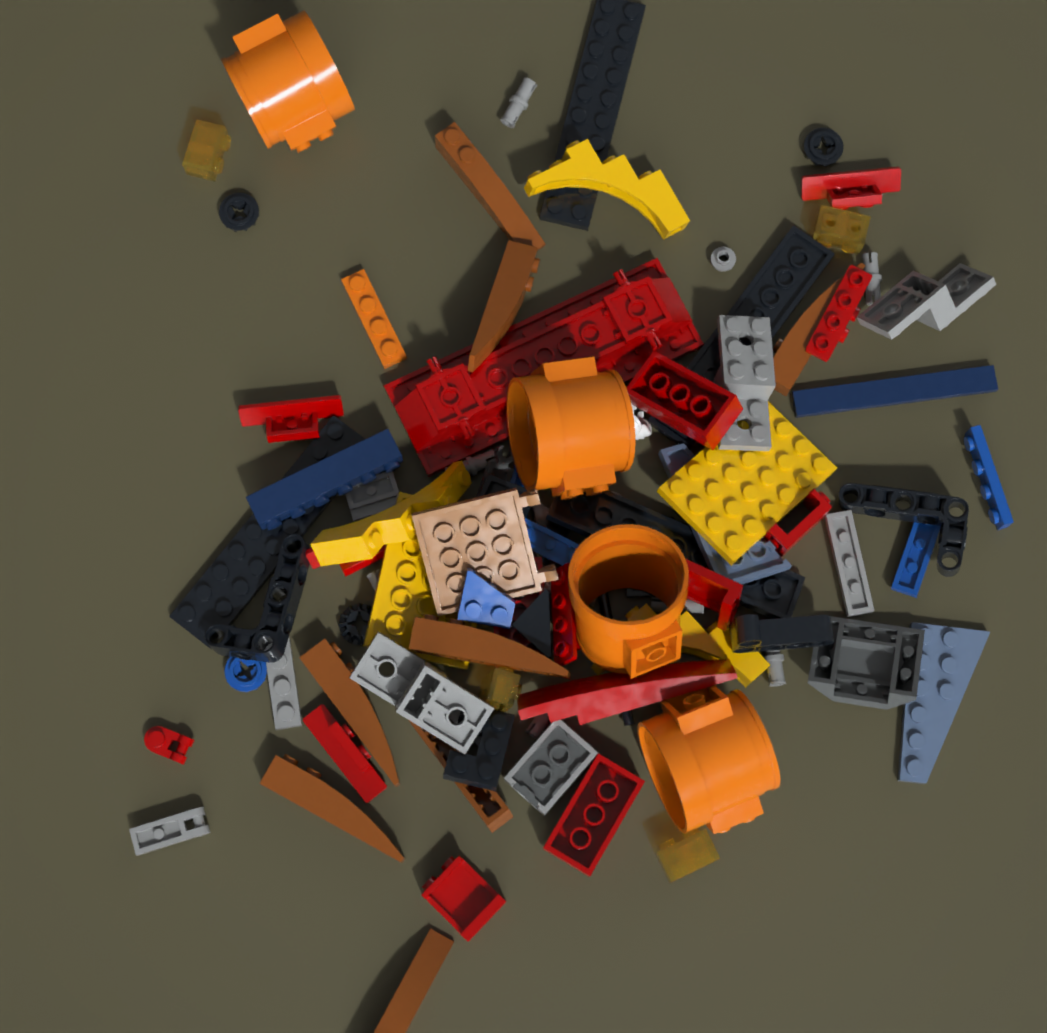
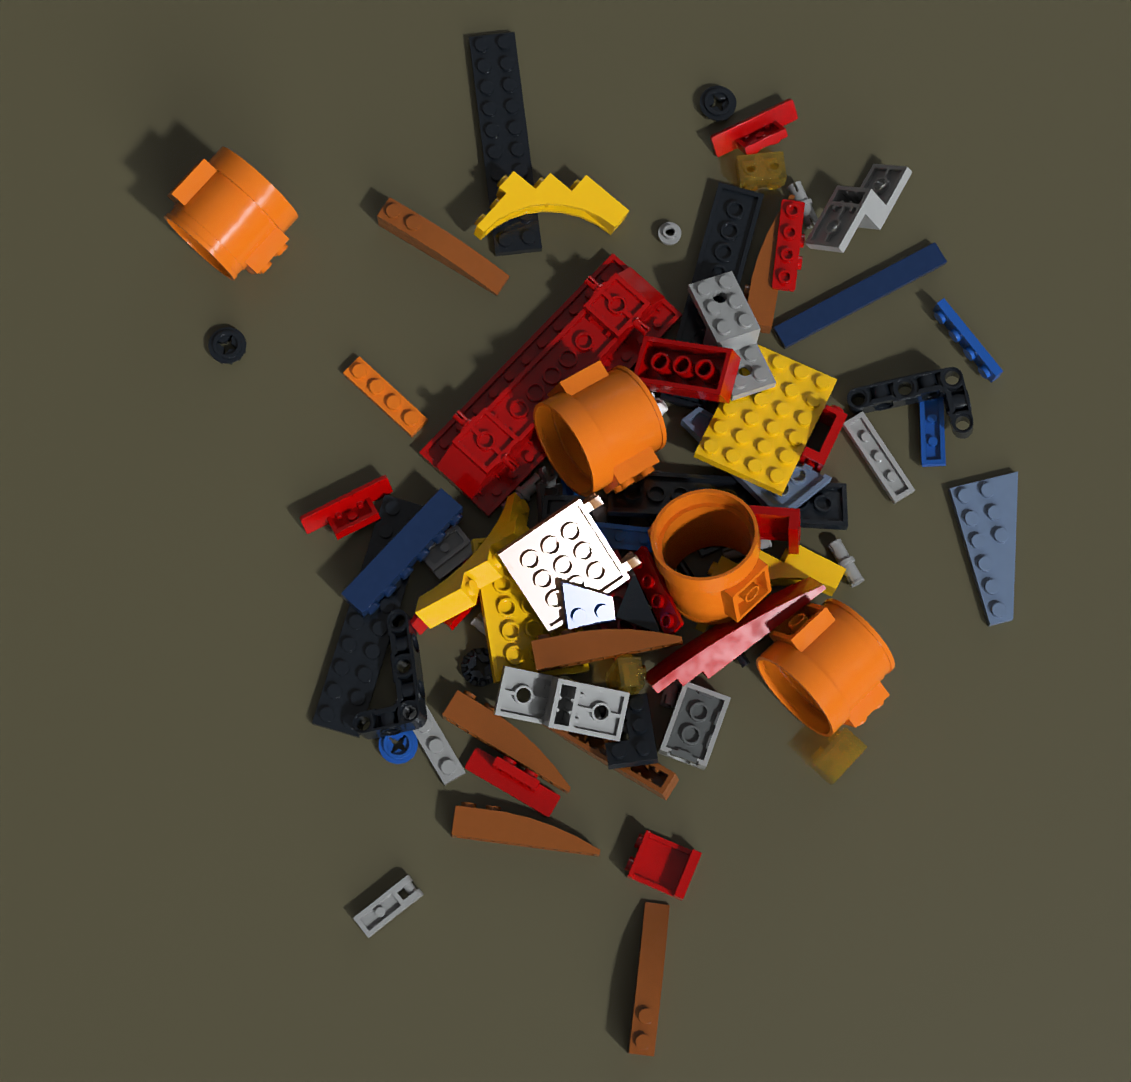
camera: 25 degrees left, 0 degrees up
(160, 740) = (346, 832): red plate -> none
(206, 150) = (176, 301): clear yellow brick -> none
(505, 299) = (497, 336): dark orange slope -> none
(518, 102) = (436, 159): light grey pin -> none
(593, 815) = (746, 752): red brick -> none
(757, 635) = (823, 547): black beam -> none
(868, 664) = (925, 536): dark grey slope -> none

